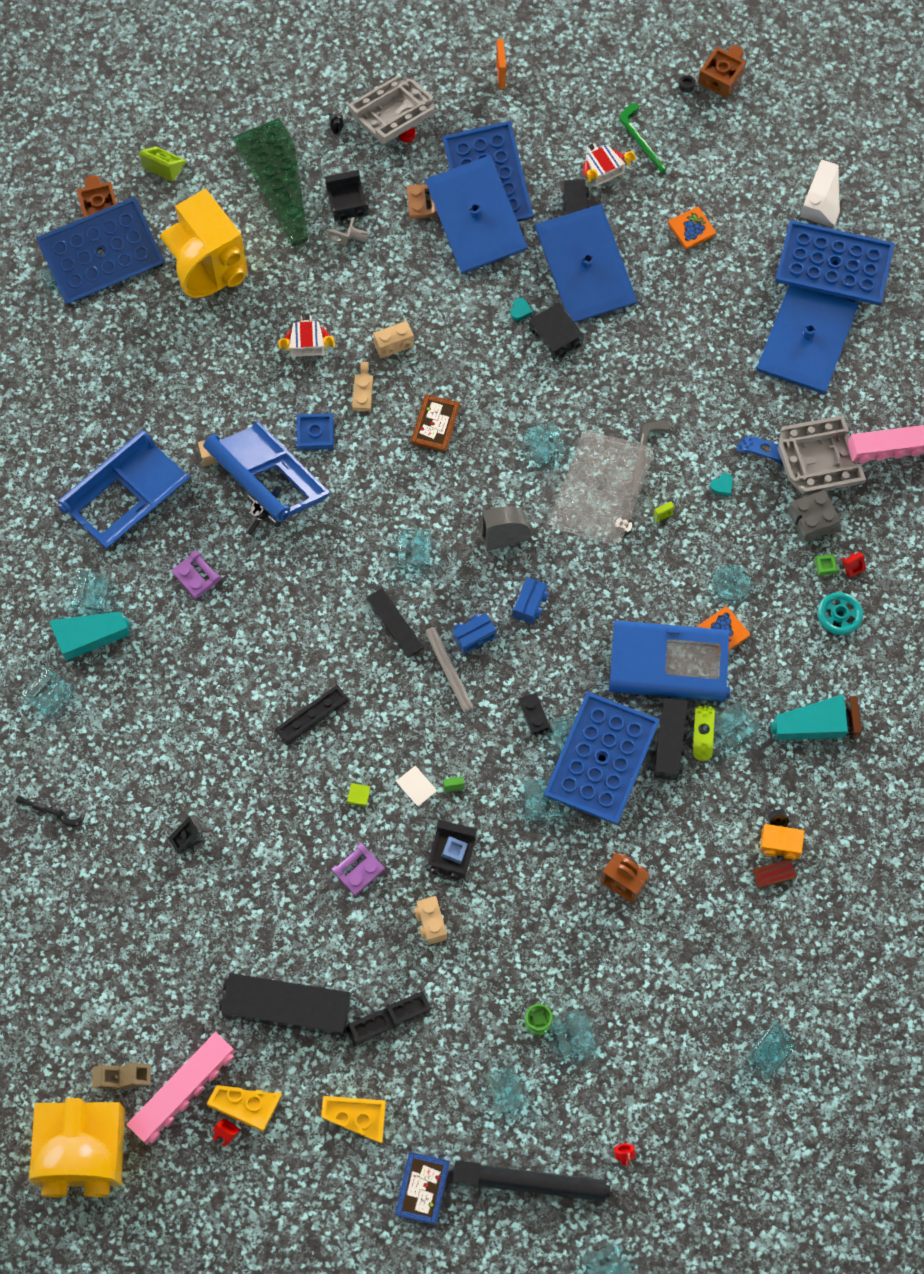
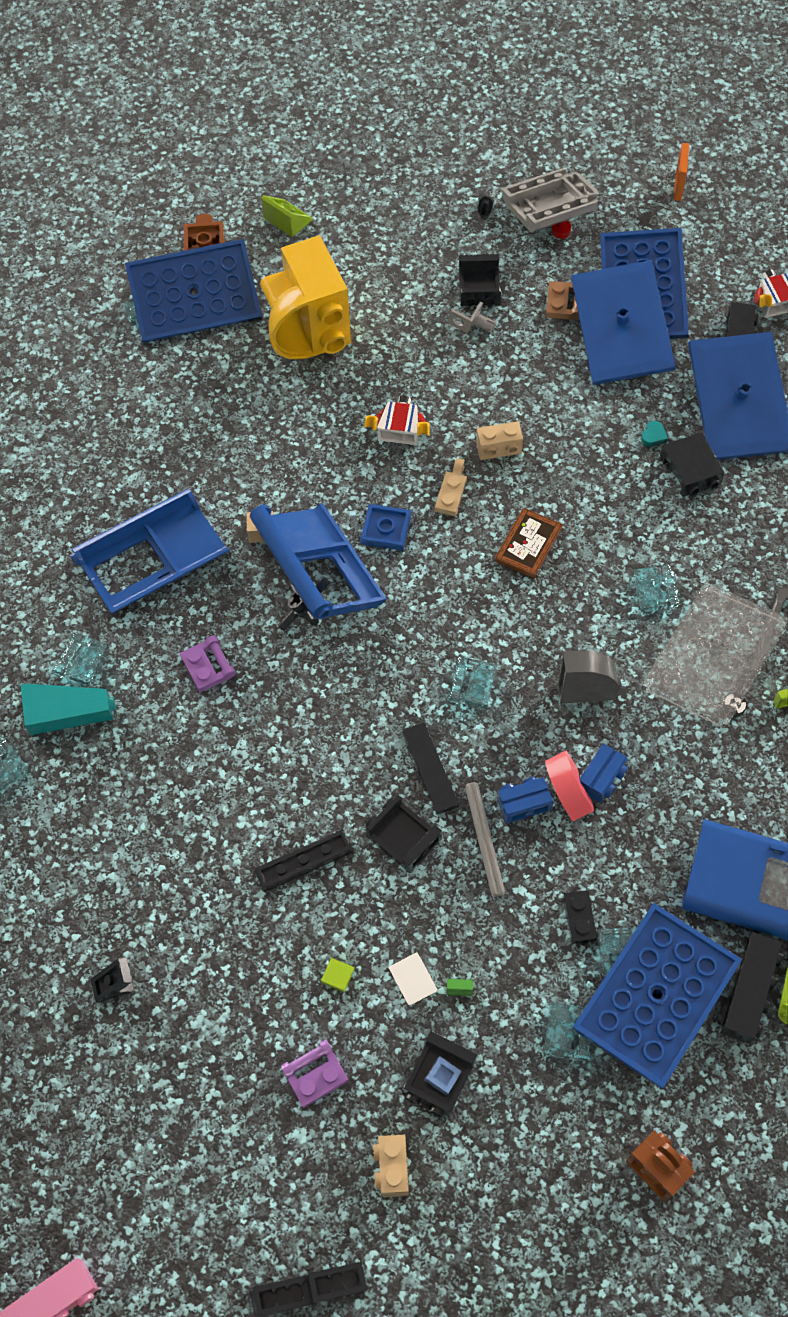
camera: 15 degrees right, 5 degrees down
(273, 164) = (406, 237): clear green wing -> none
(285, 1004) = (178, 1239): black brick -> none
(384, 678) = (402, 834): none -> black panel
(506, 617) = (567, 785): none -> coral brick

